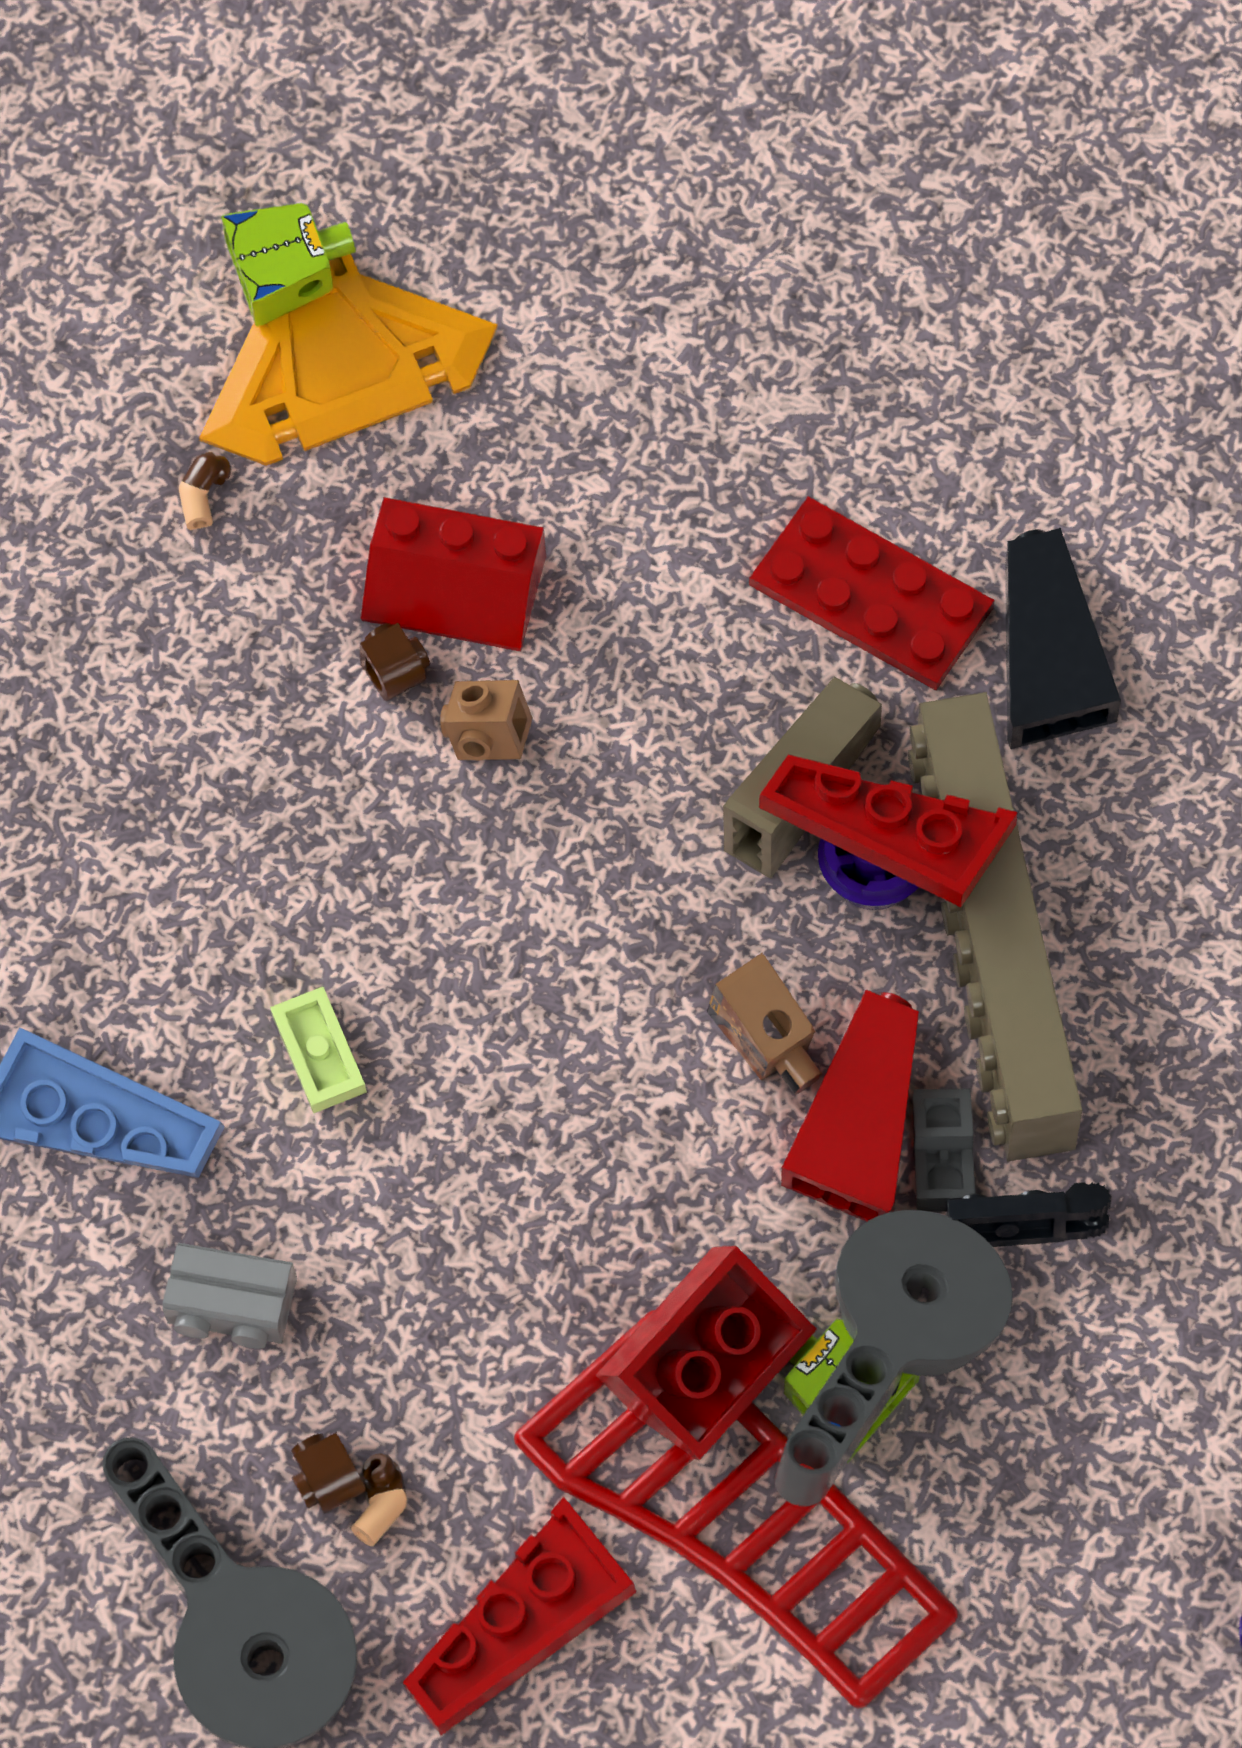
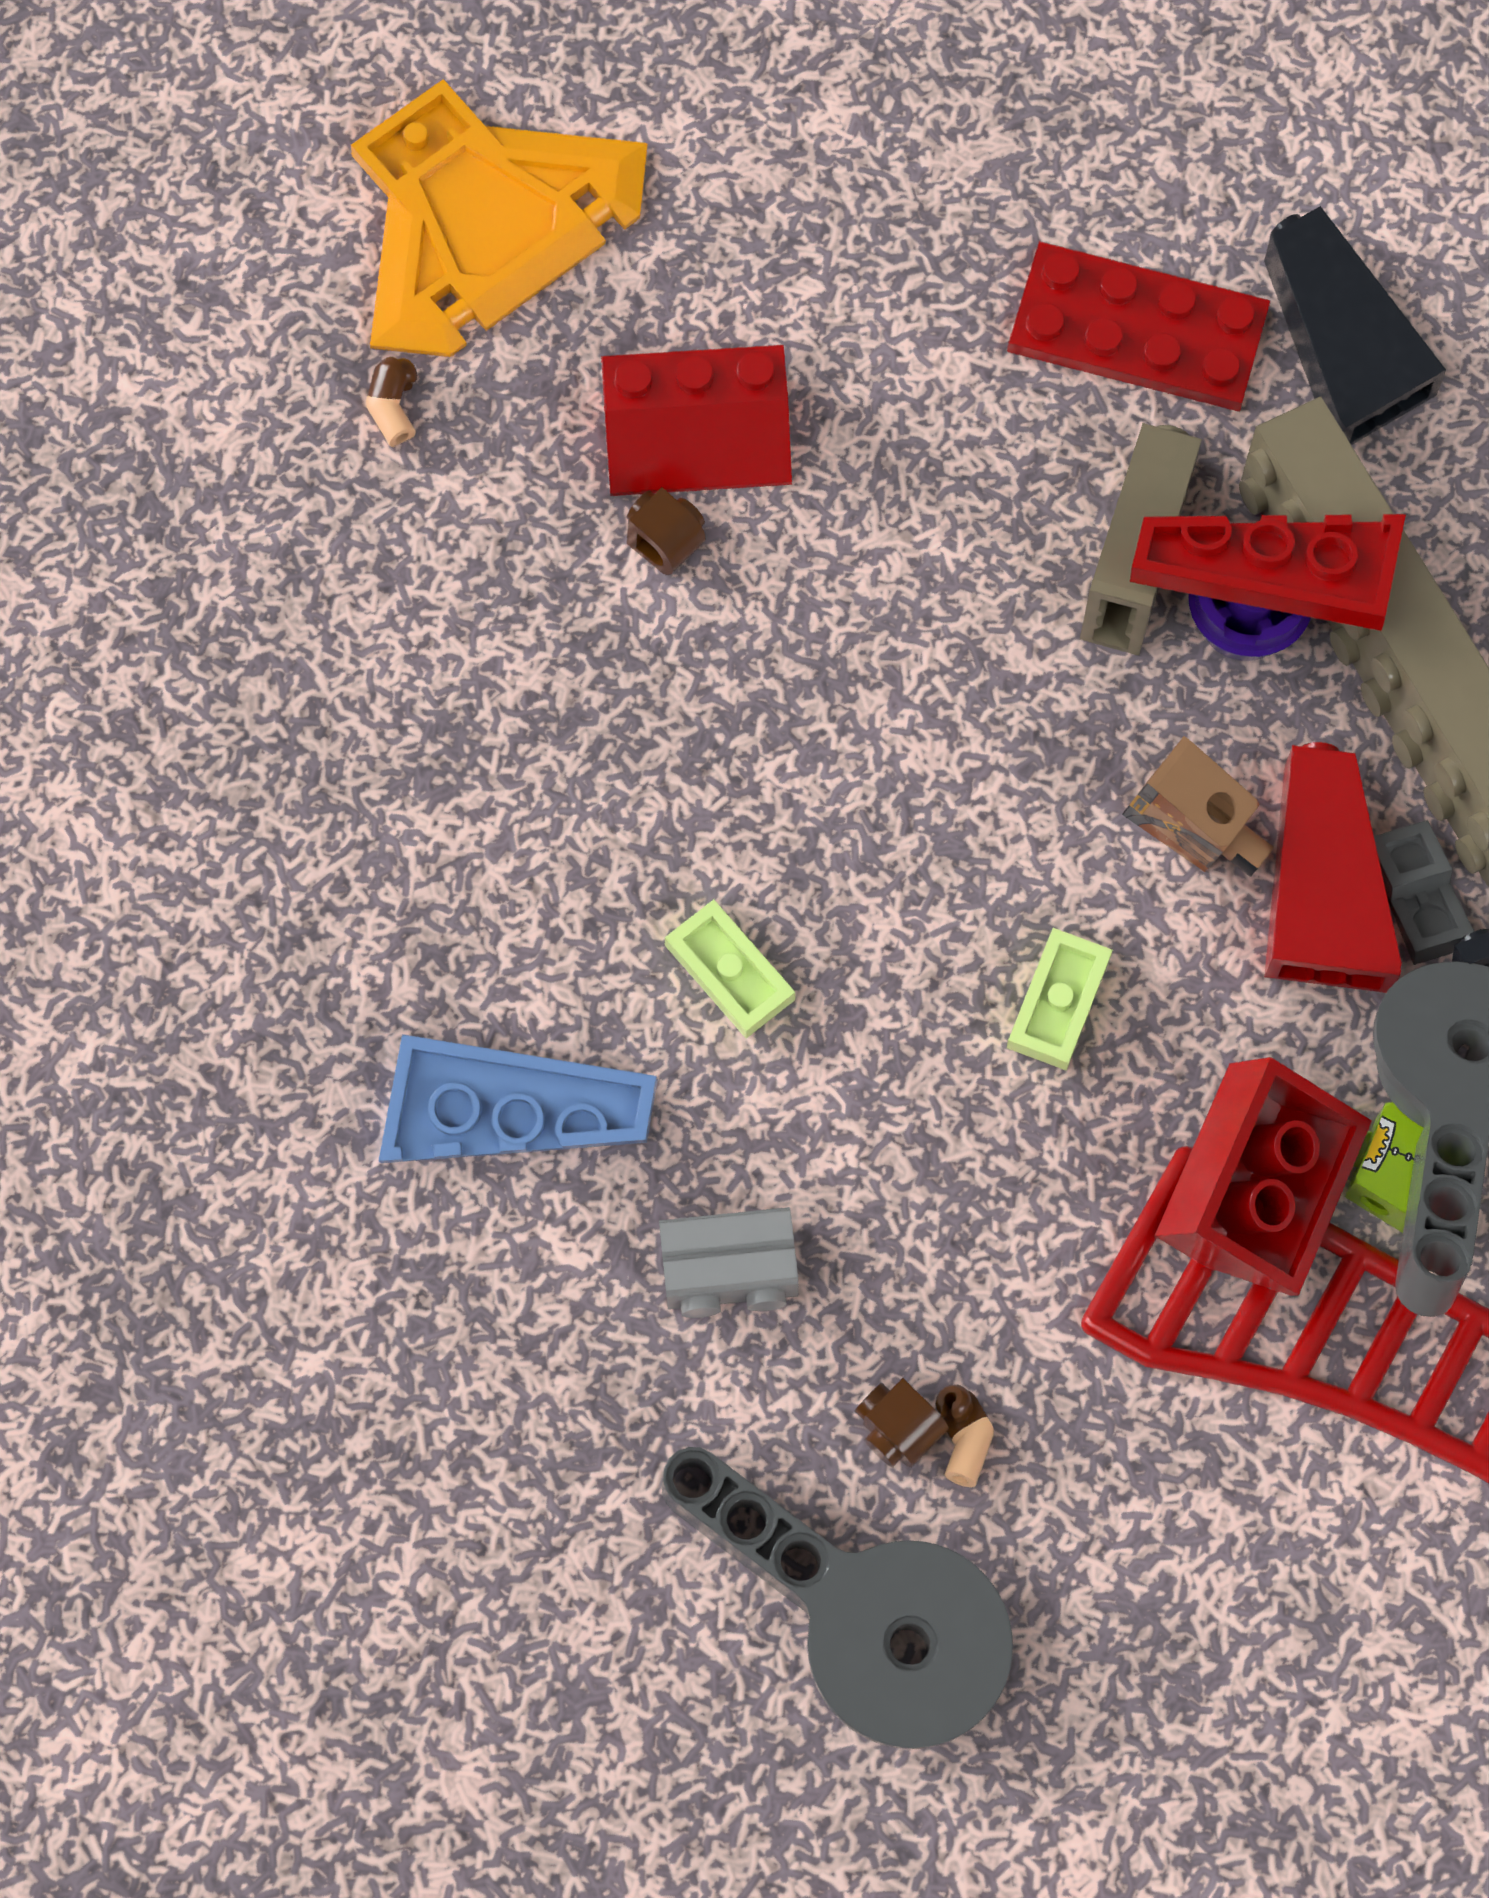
camera: 20 degrees left, 5 degrees up
(283, 257) = (400, 126): lime torso -> none
(486, 720) = (789, 566): medium nougat brick -> none
(536, 1607) = (1168, 1505): red wing -> none
(592, 1153) = (1059, 999): none -> yellowish green plate

